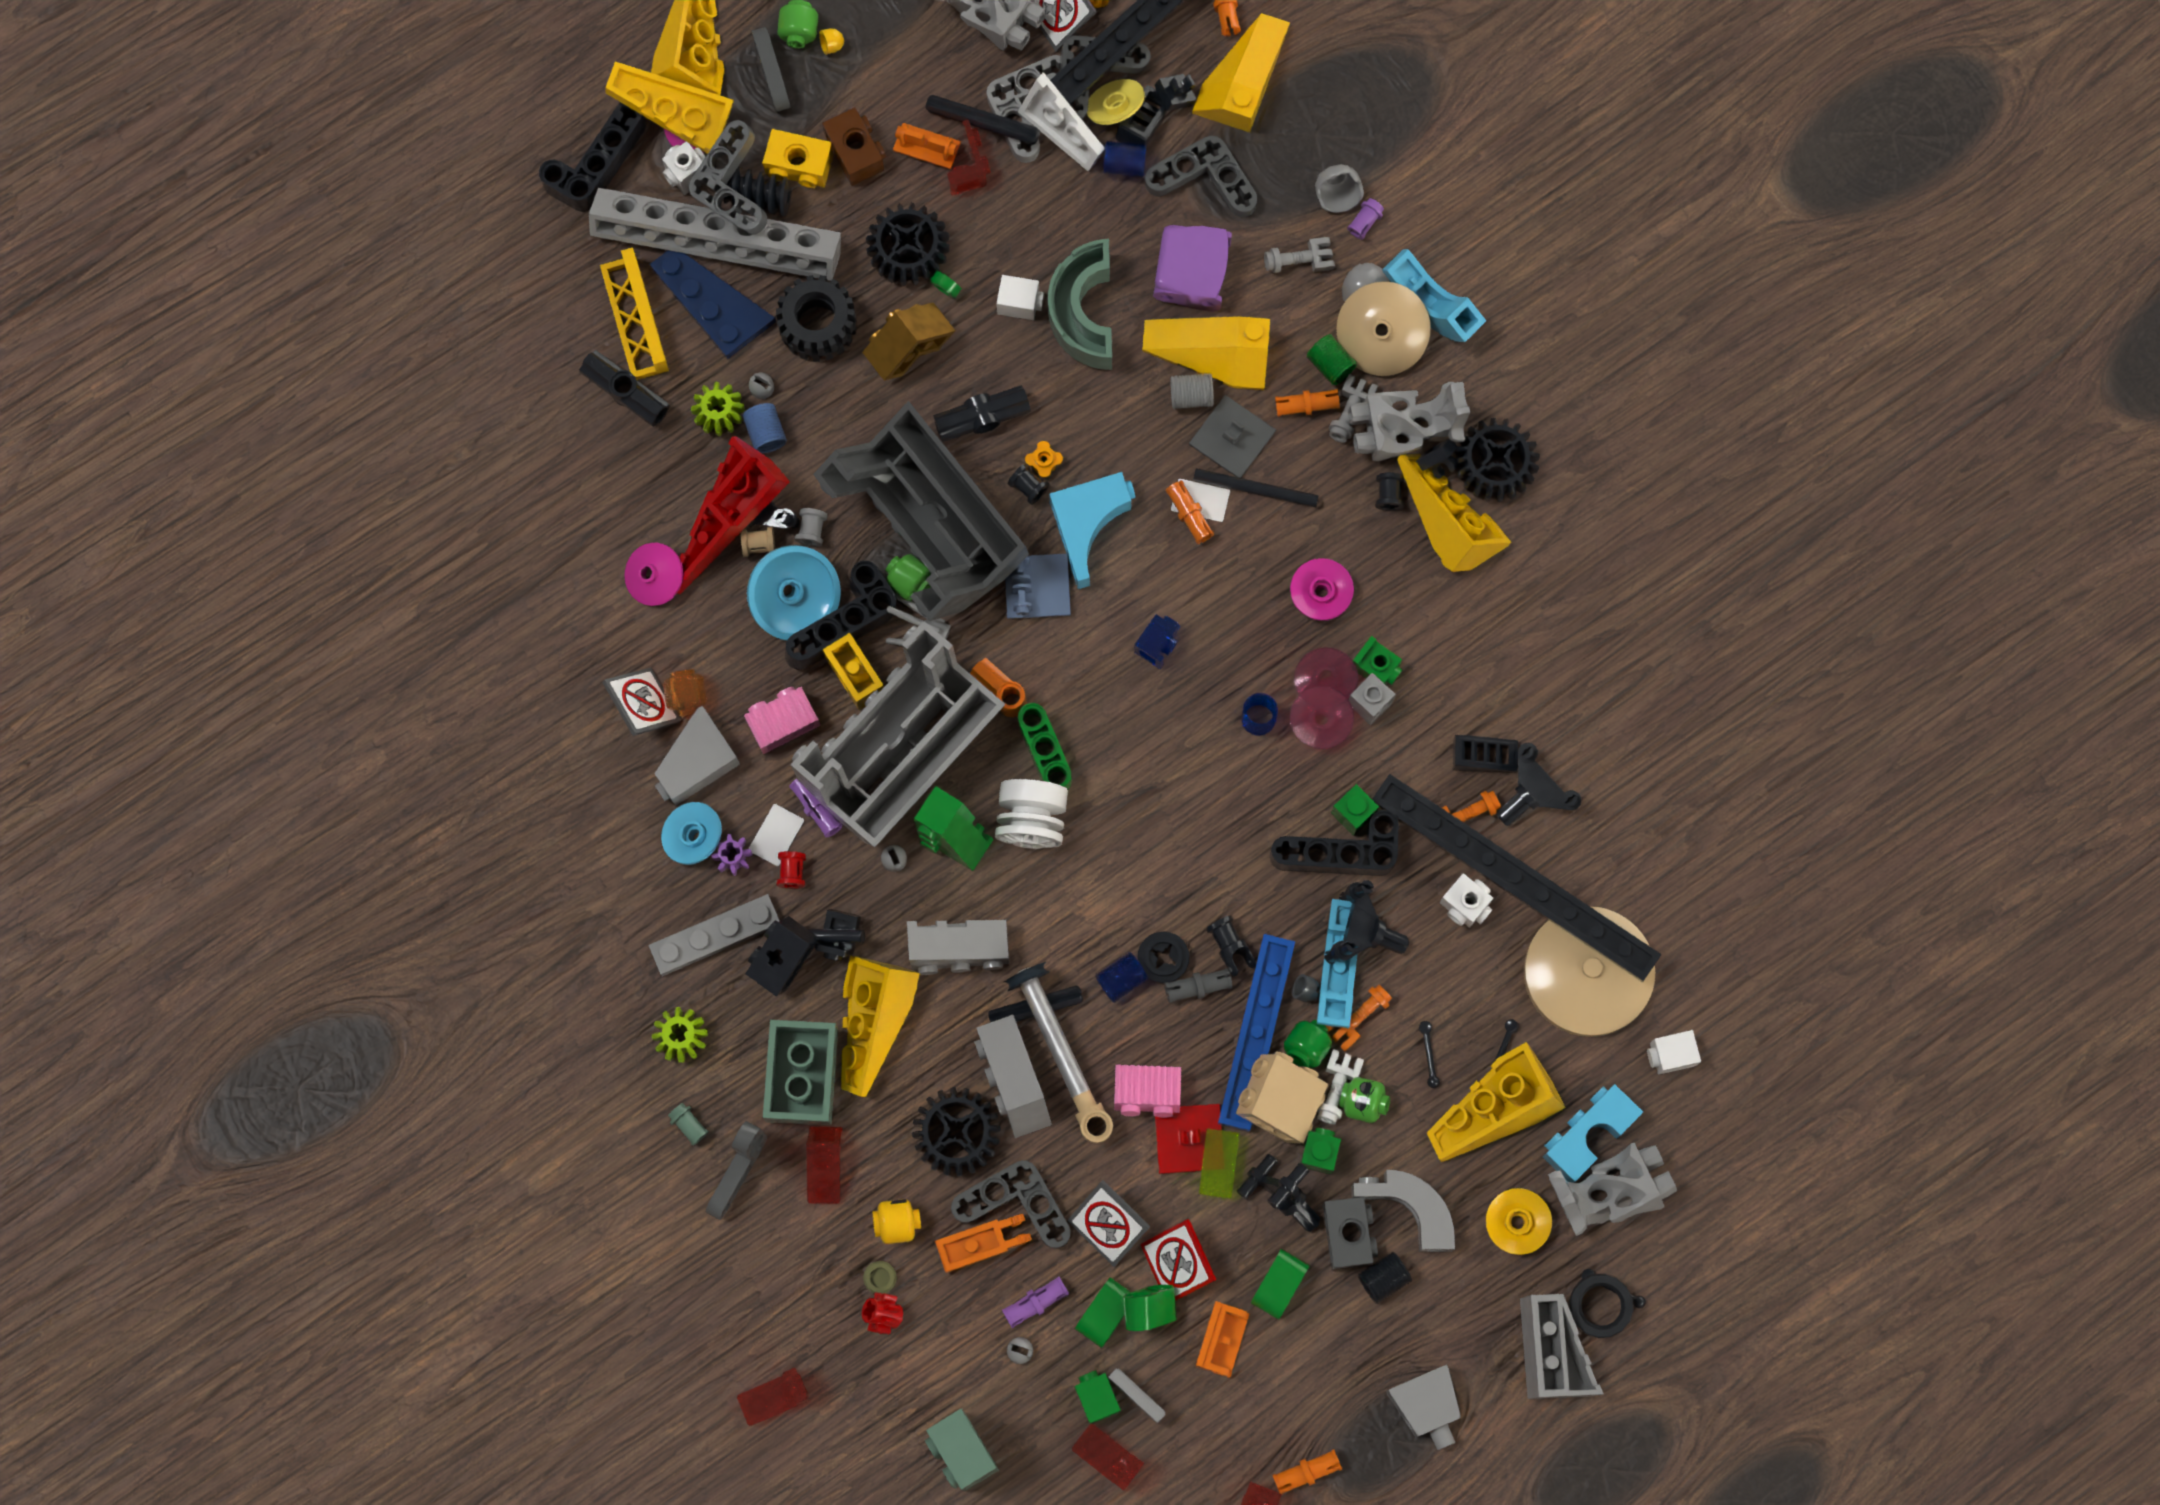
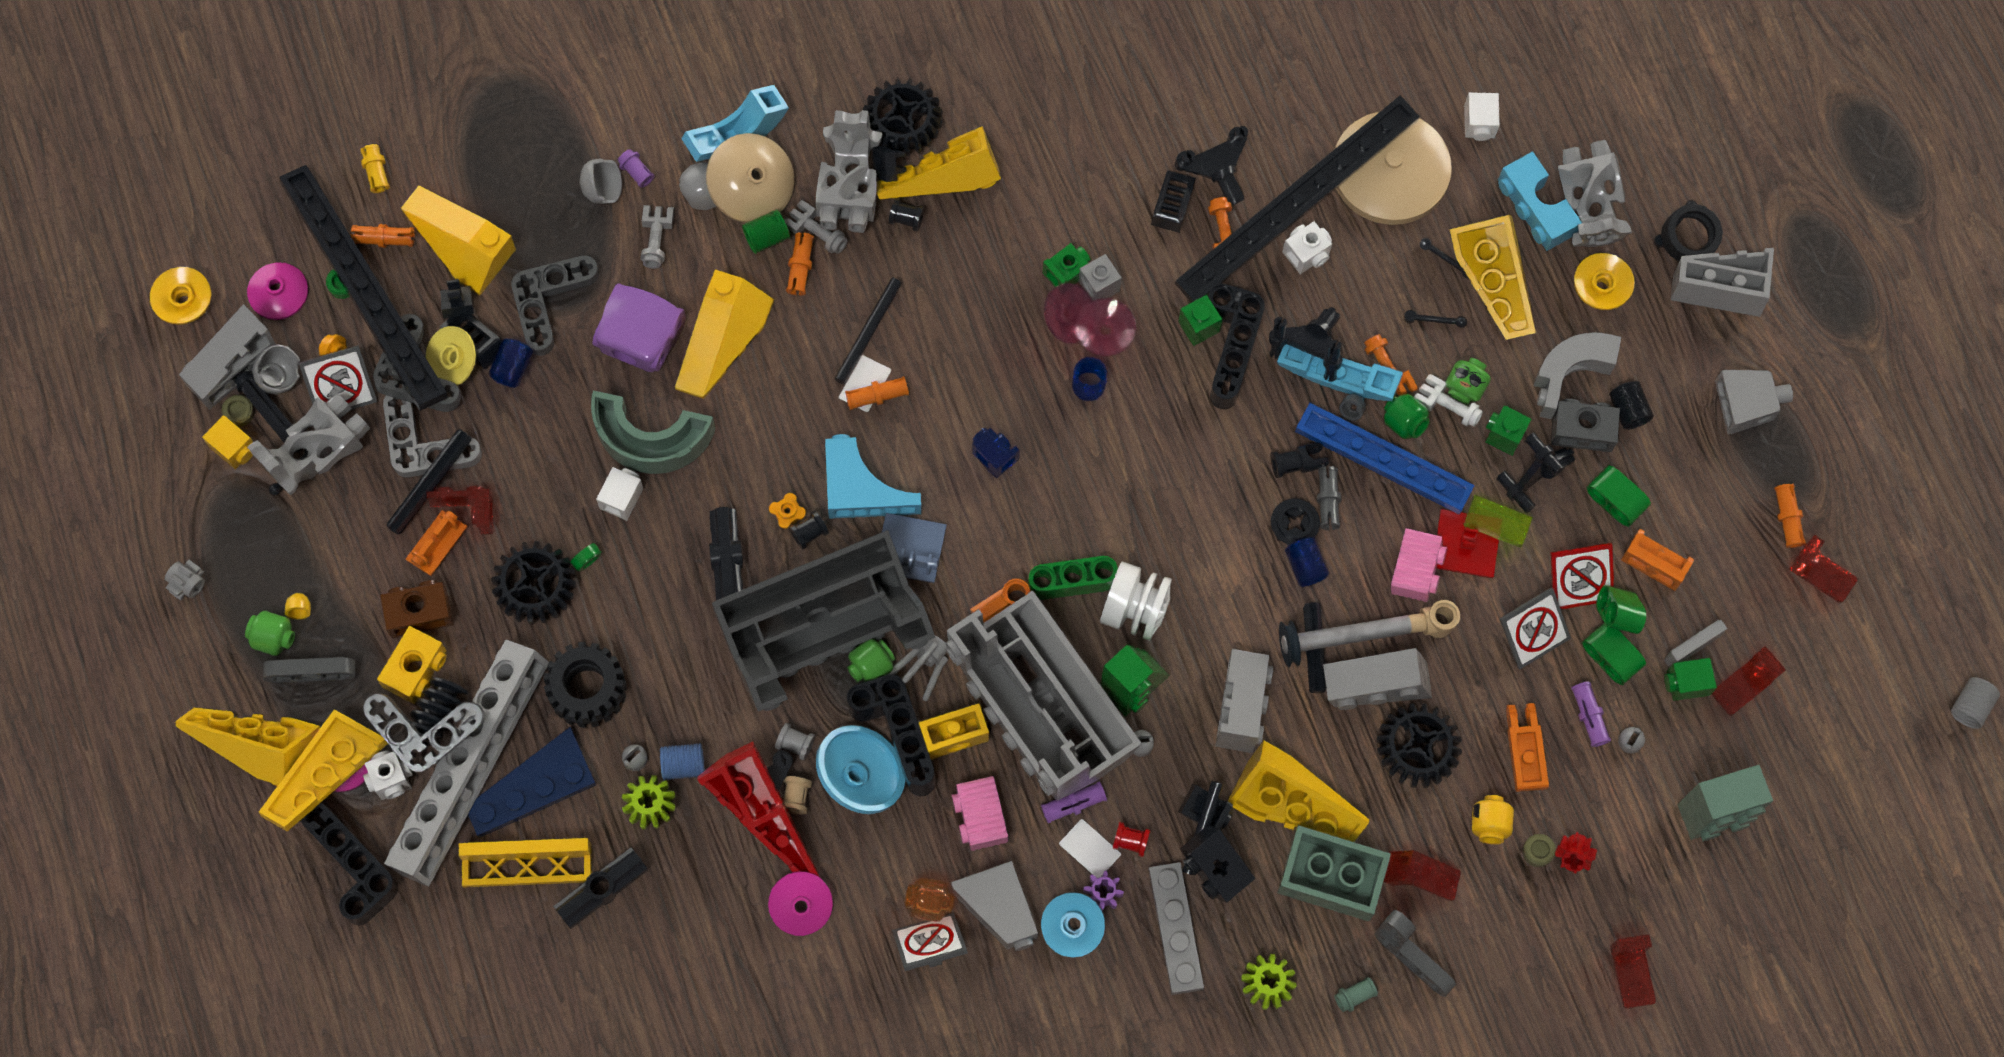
camera: 80 degrees left, 5 degrees down
(907, 337) = (632, 598): pearl gold brick -> none
(1024, 1193) = (1488, 700): dark grey beam -> none
(1060, 123) = (458, 408): white wing -> none
(1192, 391) = (760, 360): light grey piece -> none
(1232, 437) = (812, 339): dark grey piece -> none
(1282, 1097) = (1454, 446): tan brick -> none
(1321, 574) = (984, 283): dark pink dish -> none

